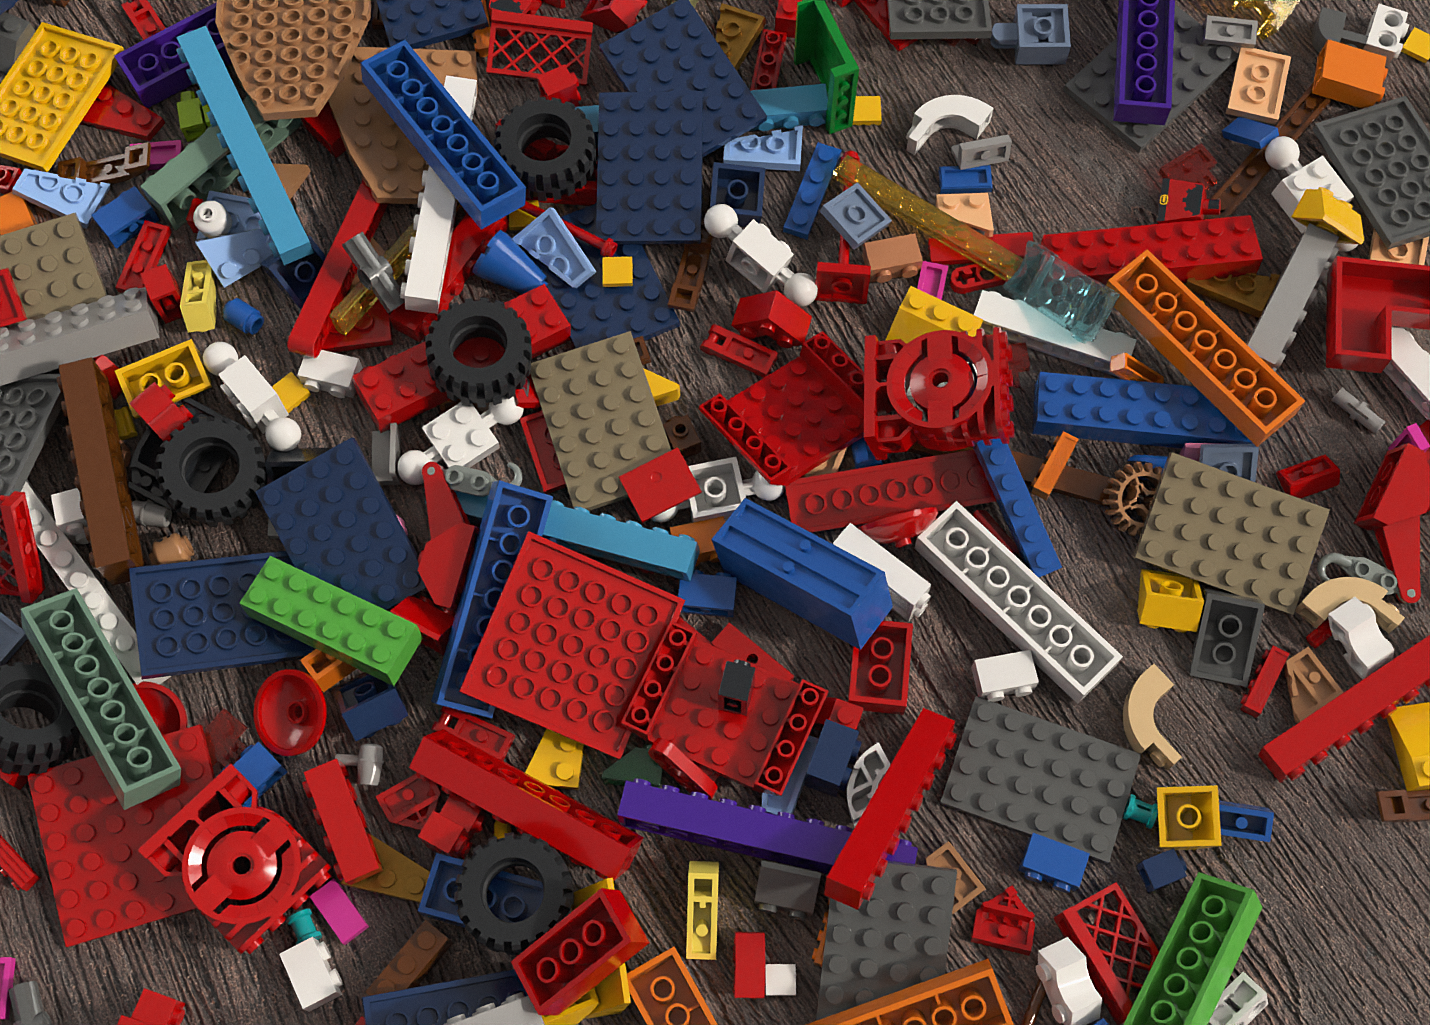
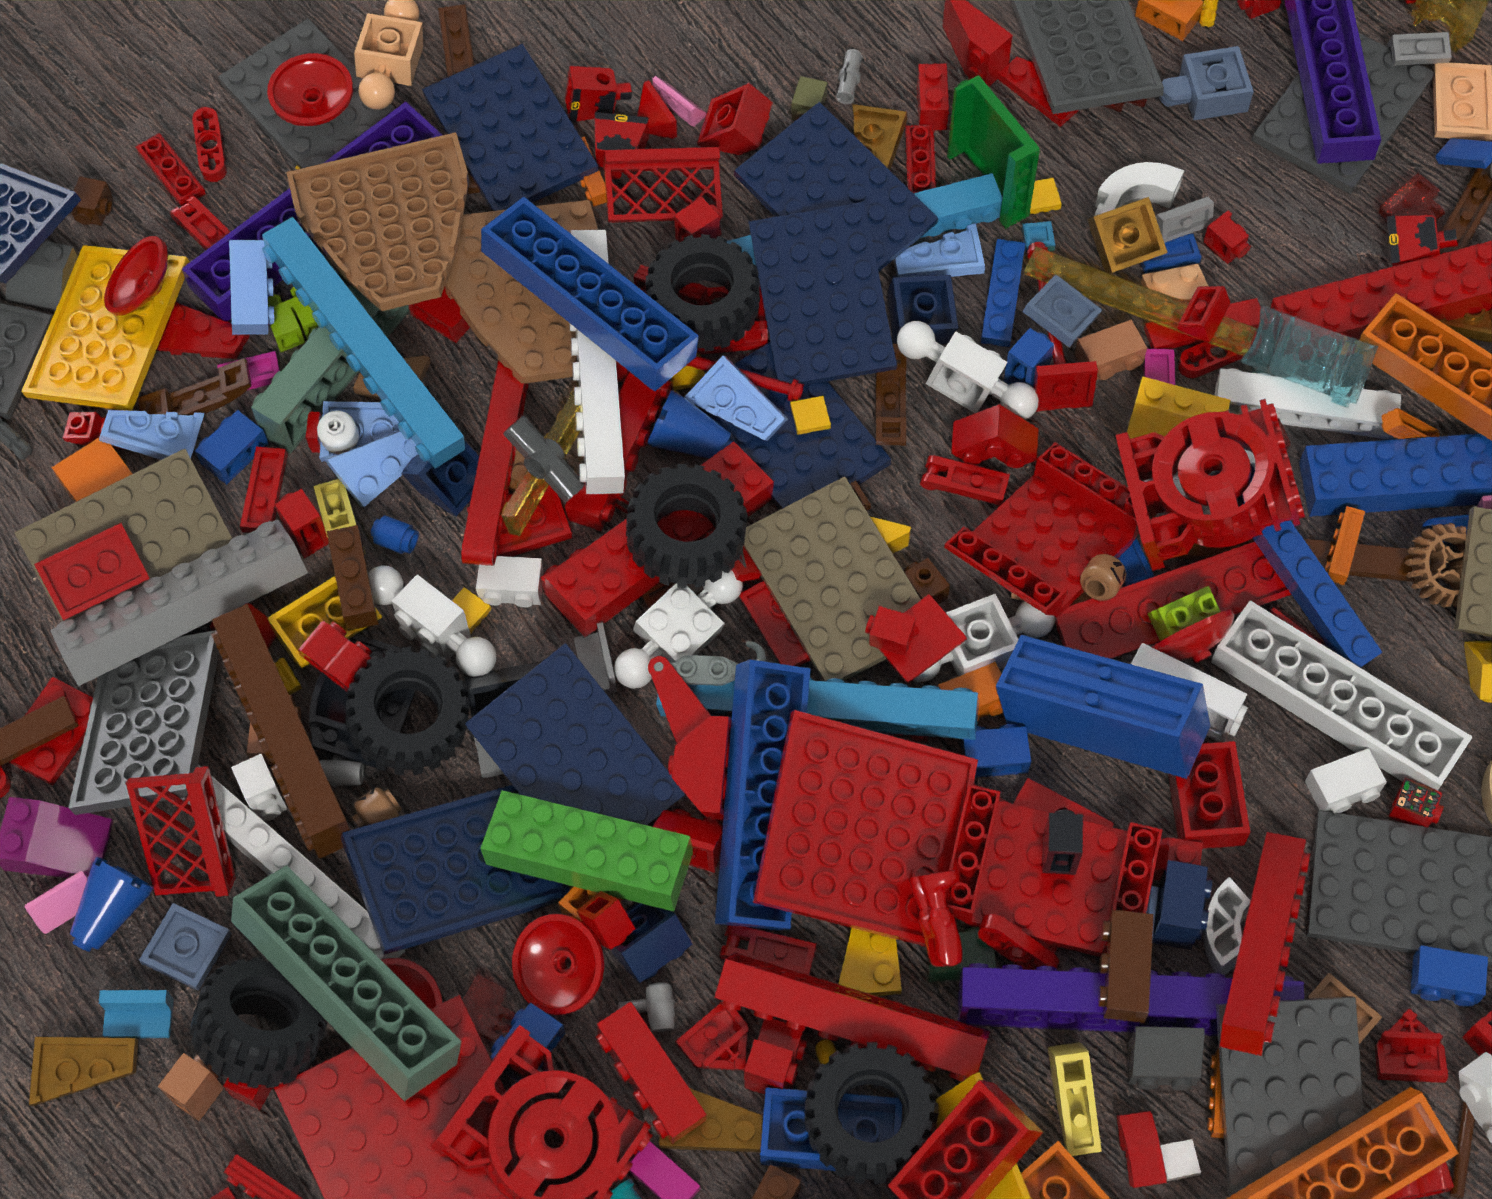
camera: 10 degrees left, 5 degrees down
(73, 57) = (137, 276): none -> red dish
(163, 83) = (250, 288): none -> light blue brick
(189, 348) = (352, 577): none -> reddish brown brick
(335, 683) = (606, 919): none -> red brick
(612, 732) = (935, 918): none -> red piece
(635, 474) = (890, 630): none -> red brick
(764, 806) = (1126, 966): none -> reddish brown brick
(815, 248) = (1030, 351): none -> blue brick
(831, 458) = (1103, 577): none -> medium nougat head
(856, 142) = (1038, 233): none -> dark azure tile
(896, 501) = (1183, 612): none -> lime hips
(927, 158) = (1127, 235): none -> pearl gold brick
(979, 238) = (1204, 312): none -> red slope
(1018, 174) = (1227, 238): none -> red brick
(1062, 706) = (1416, 804): none -> brick

